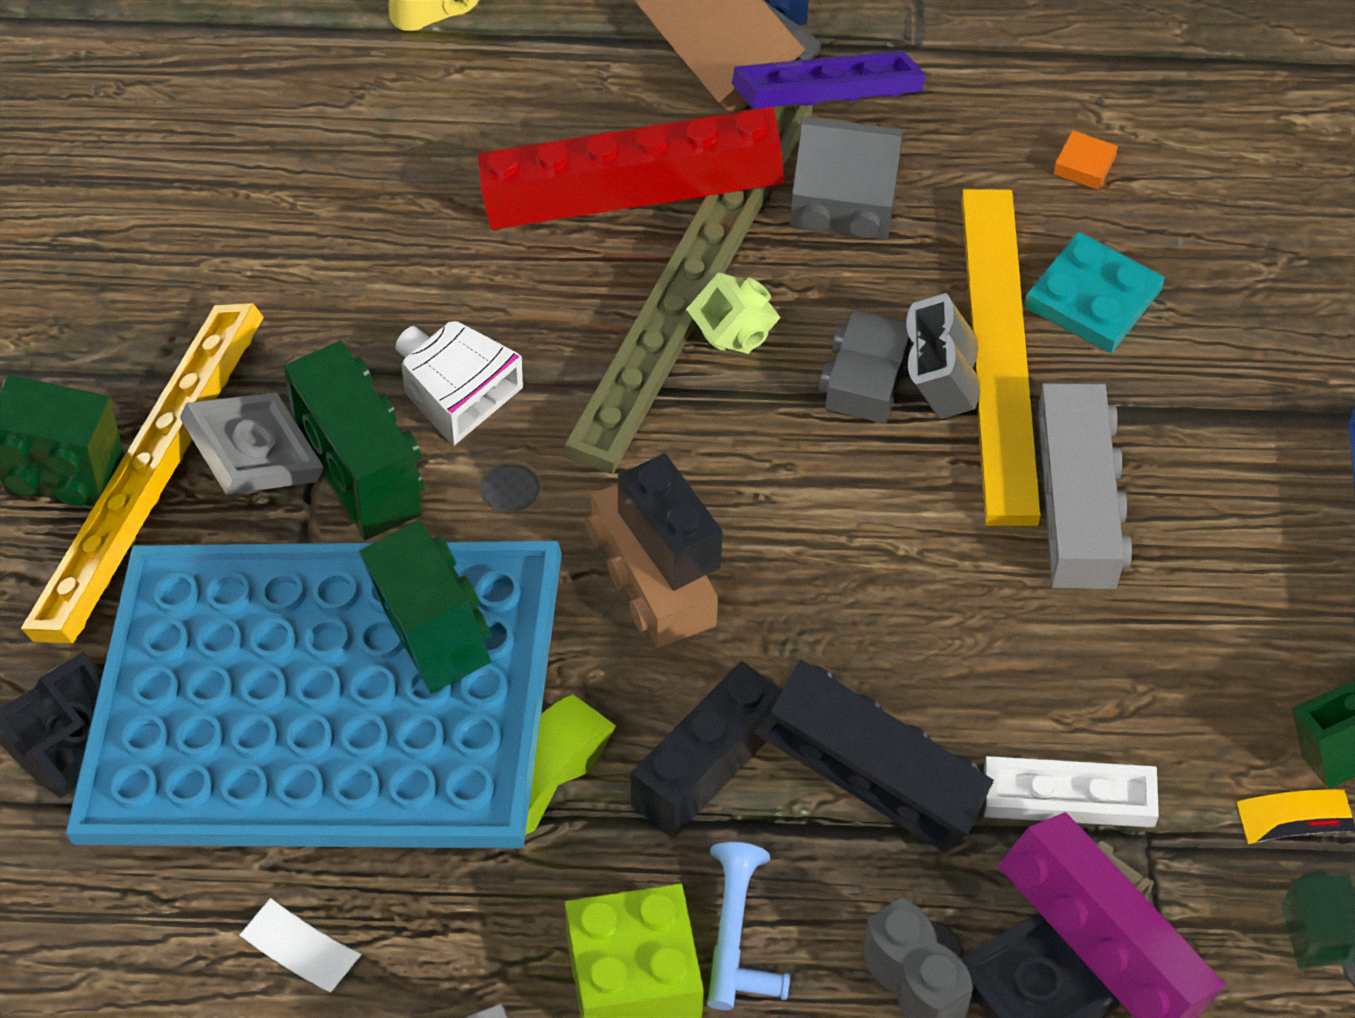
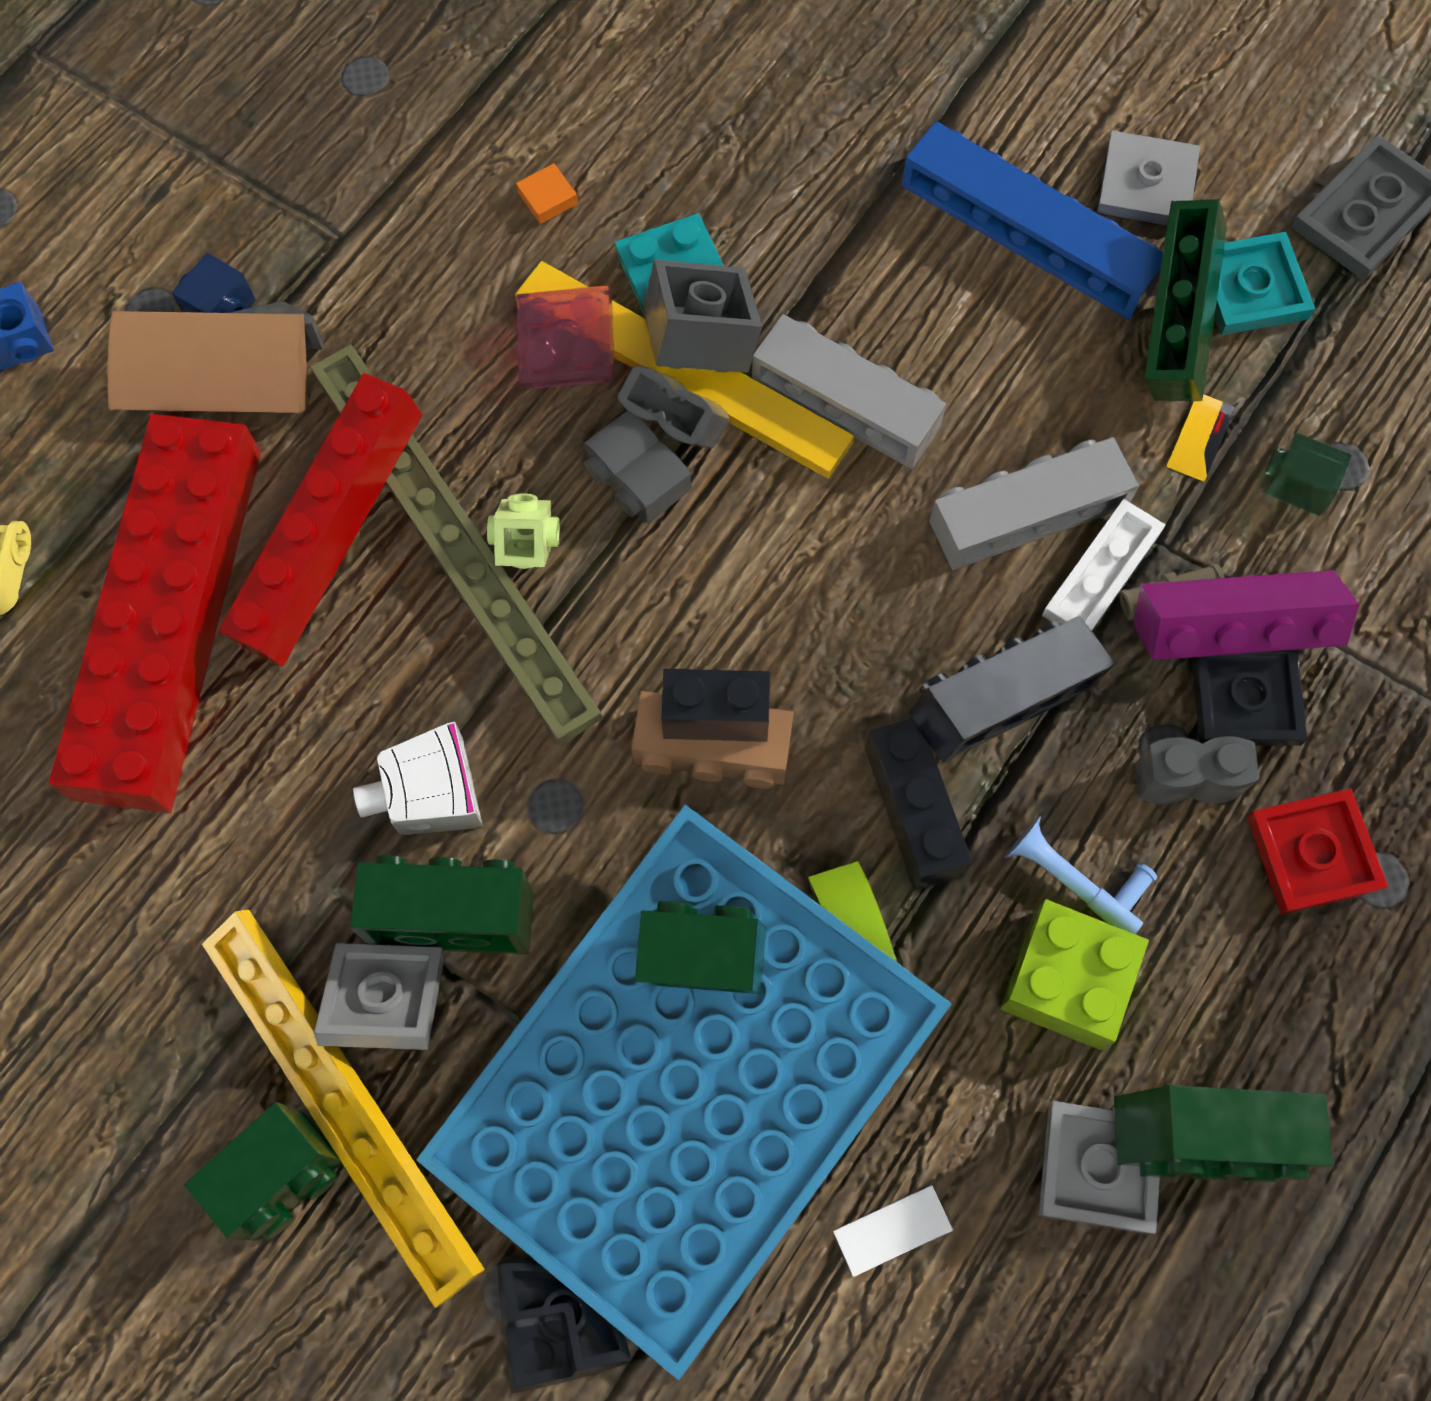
camera: 55 degrees left, 15 degrees up
(437, 121) = (157, 615): none -> red brick
(828, 79) = (341, 319): dark purple plate -> none
(845, 178) = (454, 367): dark grey slope -> none
(949, 245) = (565, 337): none -> clear pink plate
(1045, 321) = (701, 316): none -> dark grey brick
(1089, 692) = (1032, 502): none -> light grey brick

